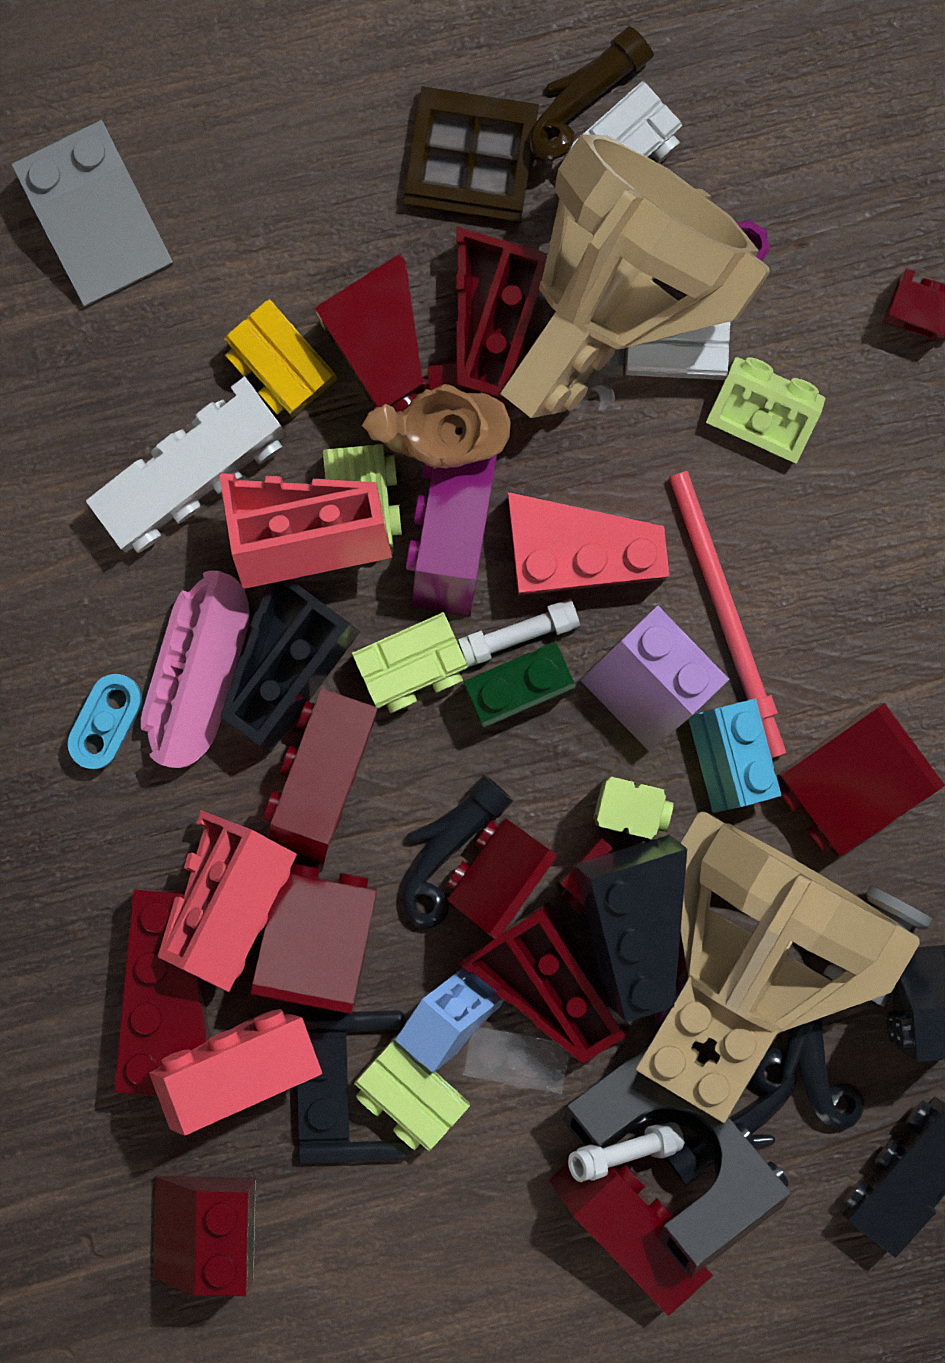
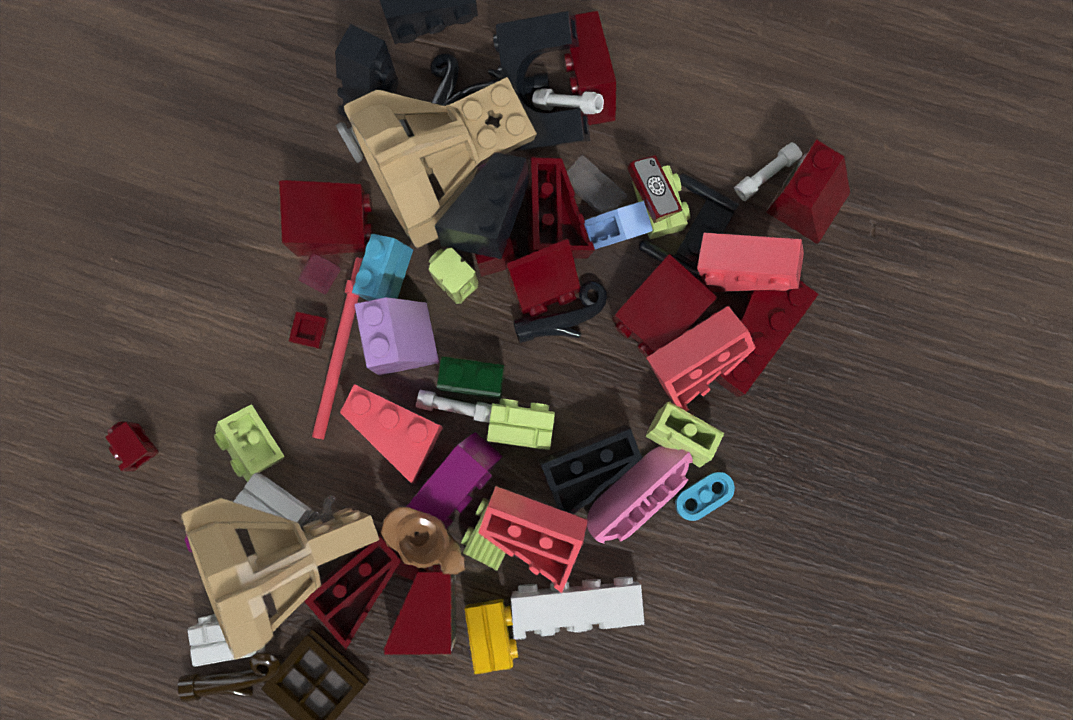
camera: 145 degrees left, 5 degrees down
(185, 789) = (681, 430): none -> yellowish green brick
(273, 1274) = (786, 157): none -> white bar
(319, 775) = (607, 394): dark red wedge -> none
(428, 1101) = (654, 188): none -> slope
(785, 611) = (308, 330): none -> dark red plate
(821, 698) = (319, 273): none -> clear pink plate

